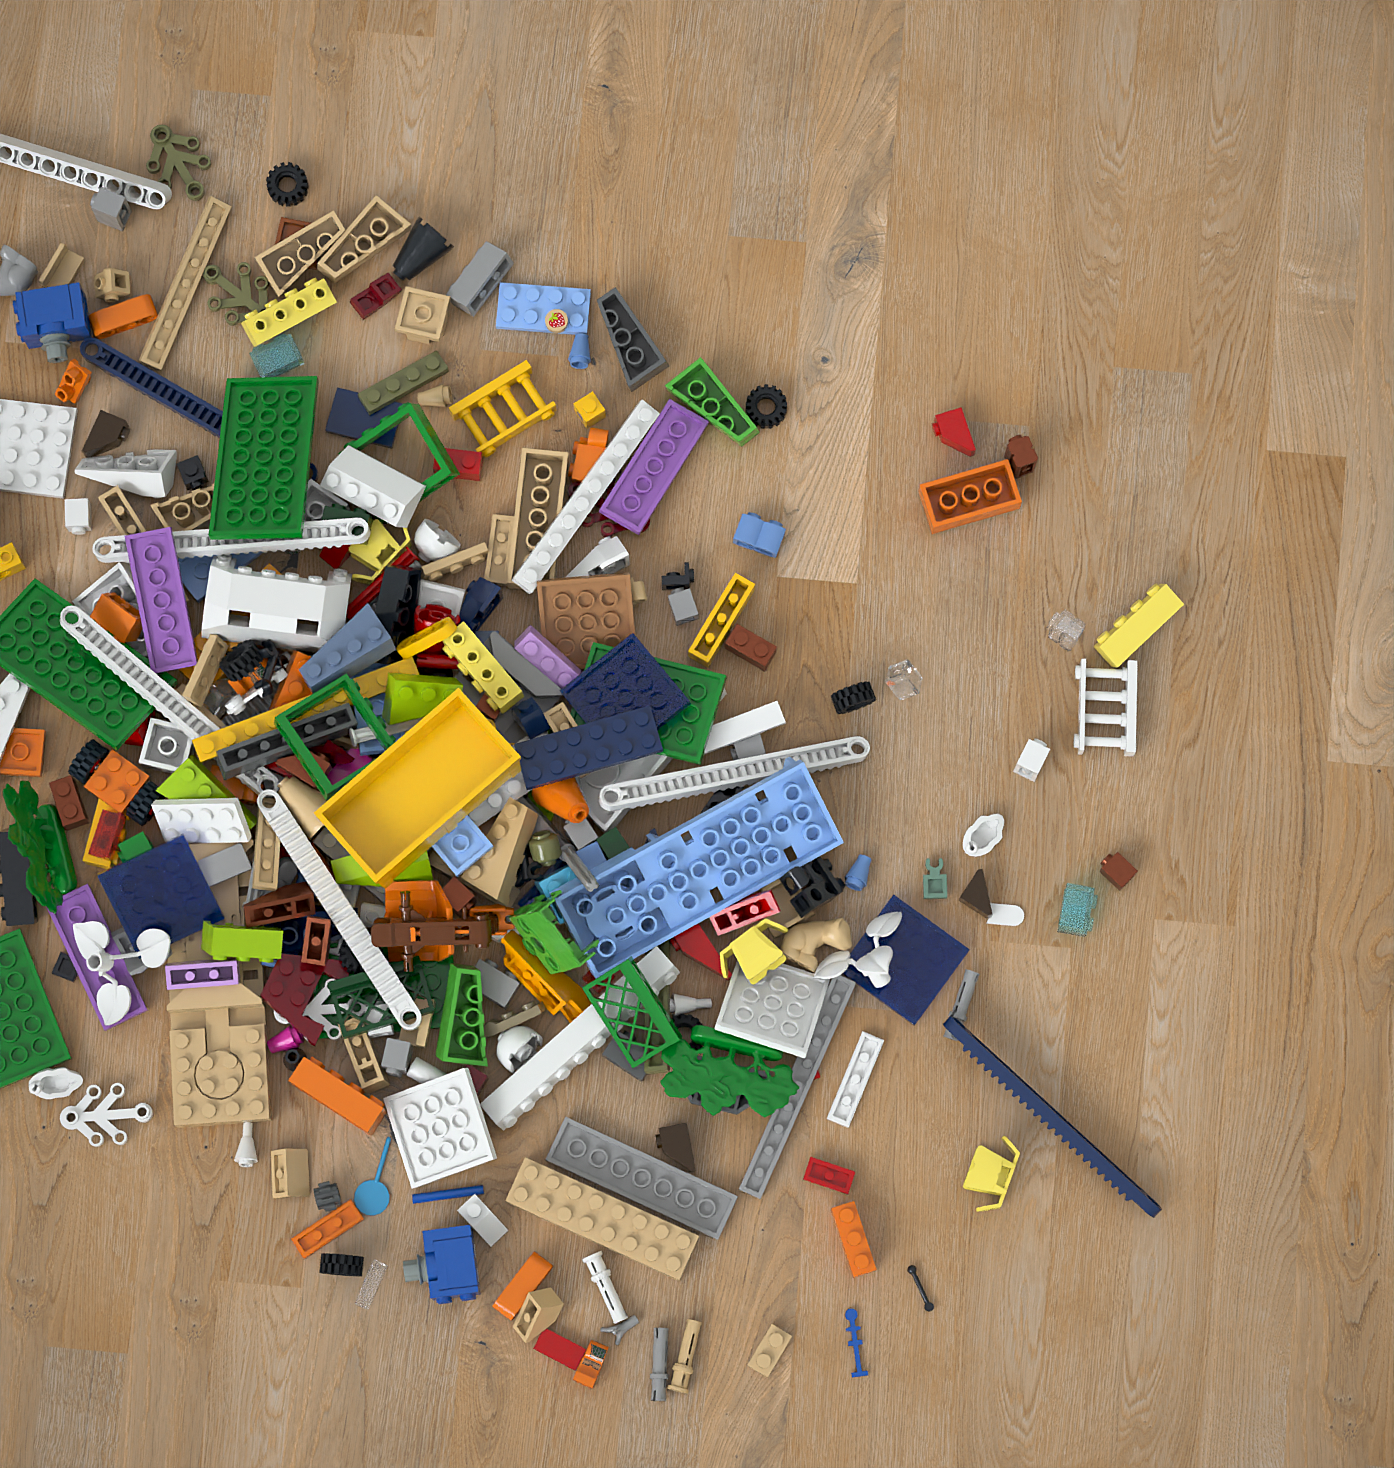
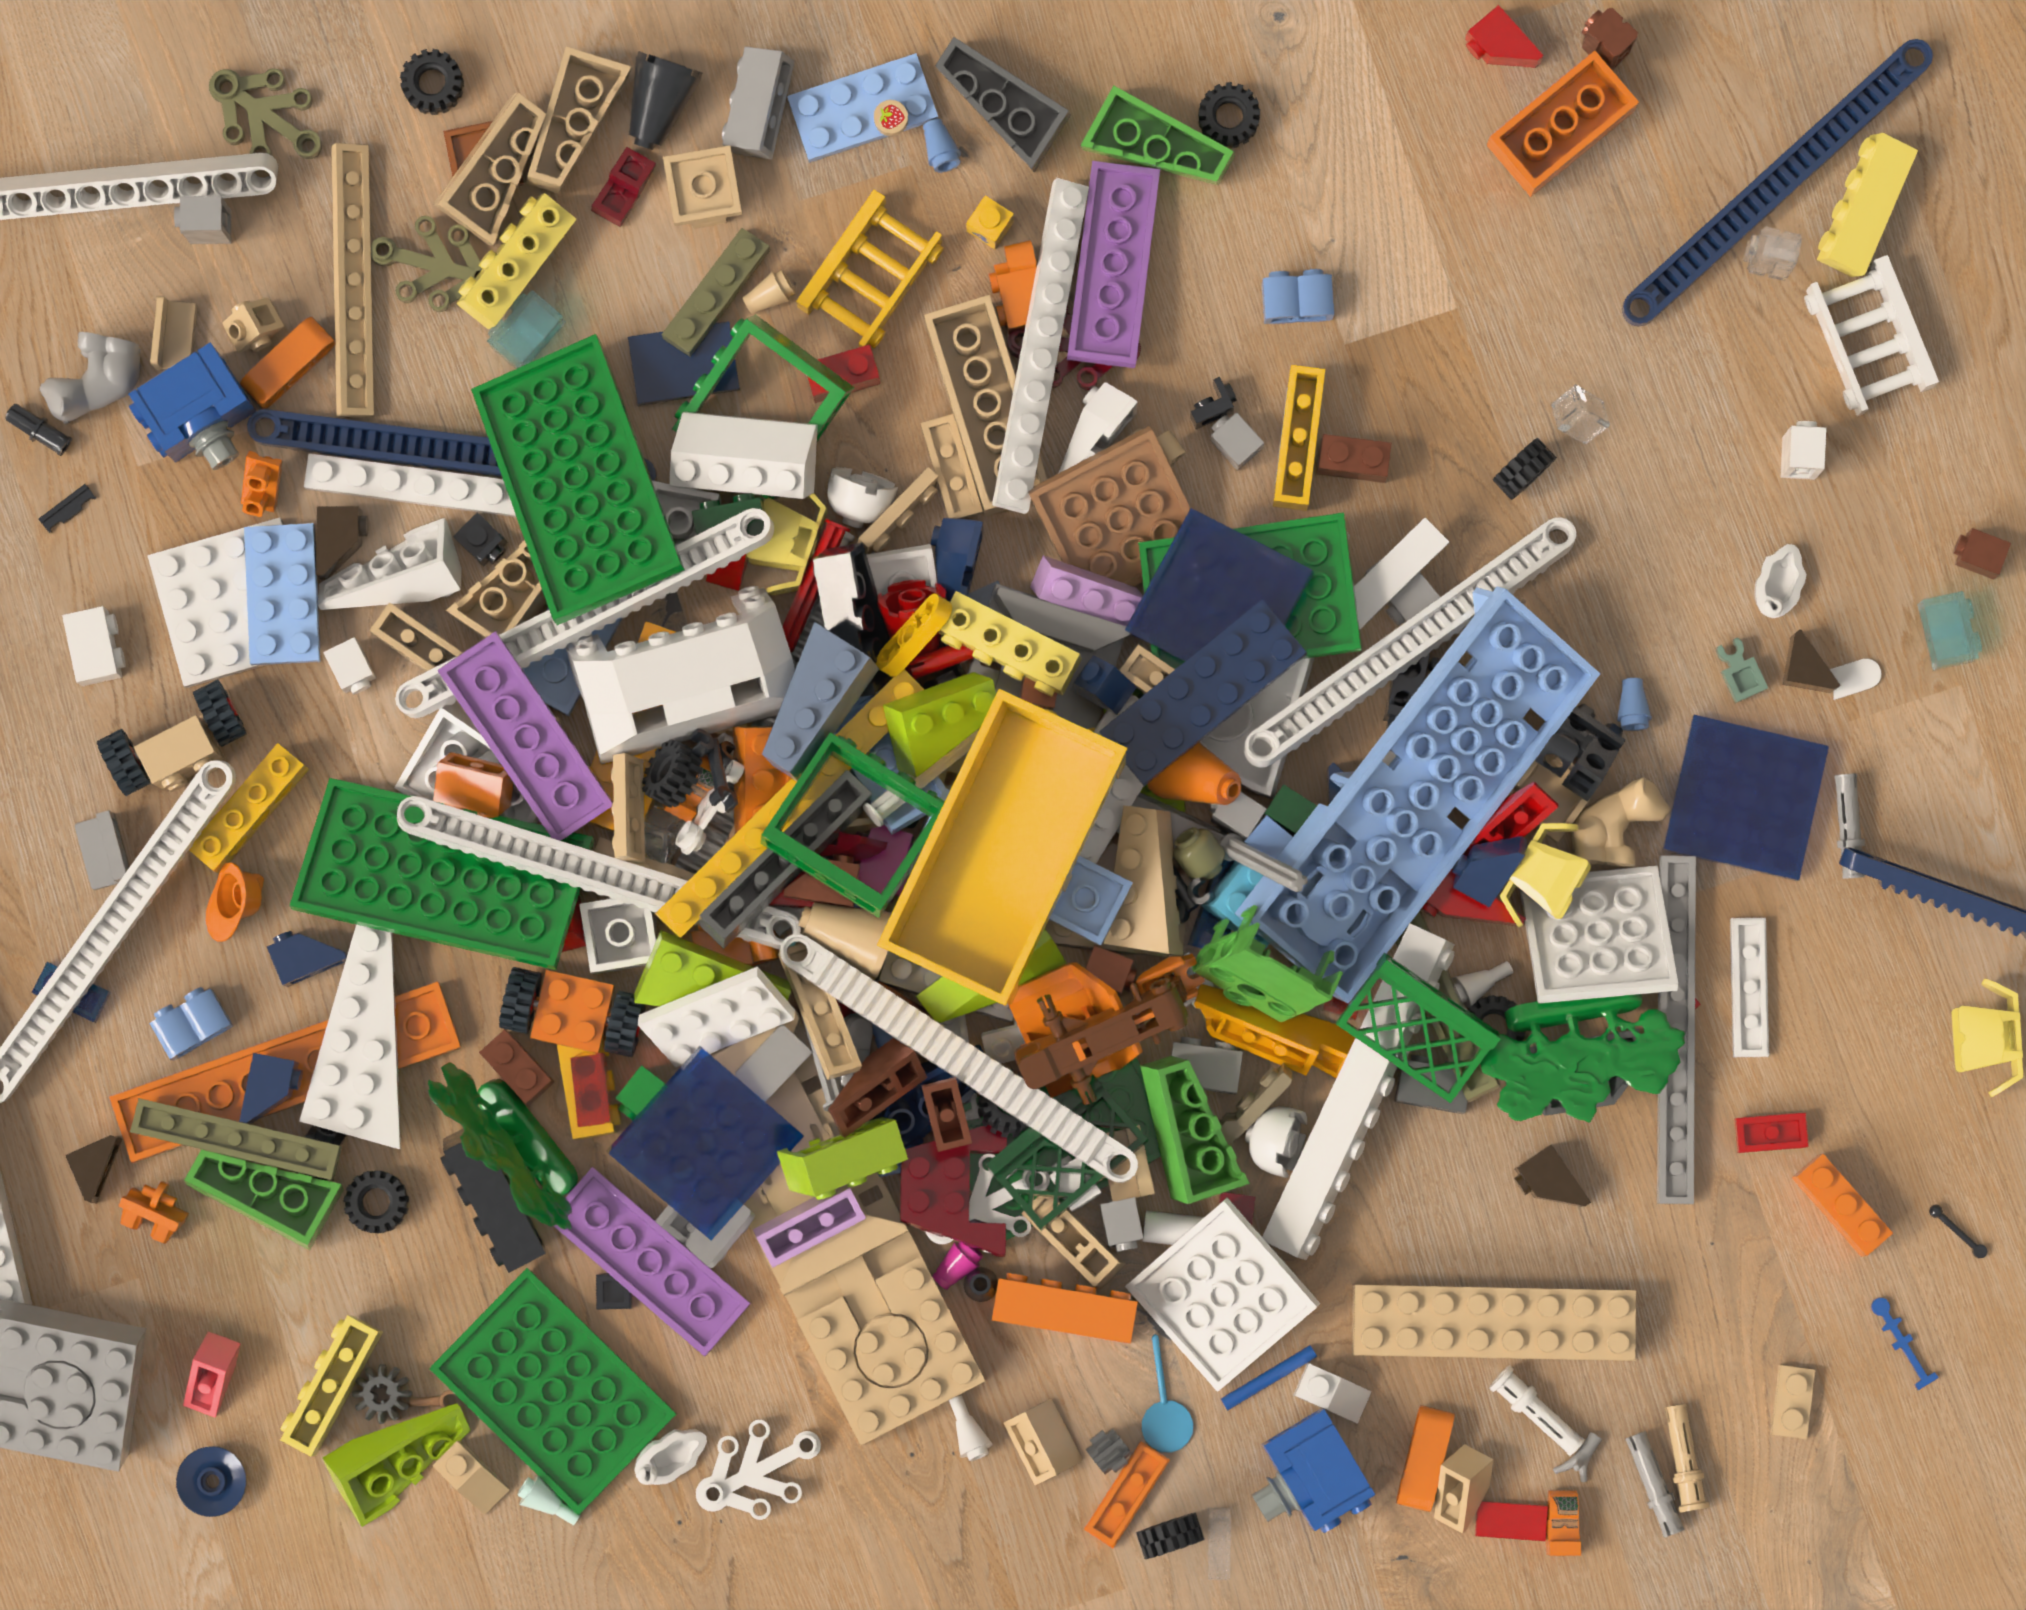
camera: 20 degrees left, 5 degrees up
(55, 454) = (282, 594): none -> light blue plate
(91, 940) = (698, 1311): white plant -> none
(161, 420) = (407, 485): none -> white plate
(641, 1178) = (1521, 1244): light grey plate -> none
(720, 932) = (1488, 868): none -> dark blue slope
(875, 963) = (1721, 824): white plant -> none
(1089, 588) = (1777, 182): none -> dark blue gear

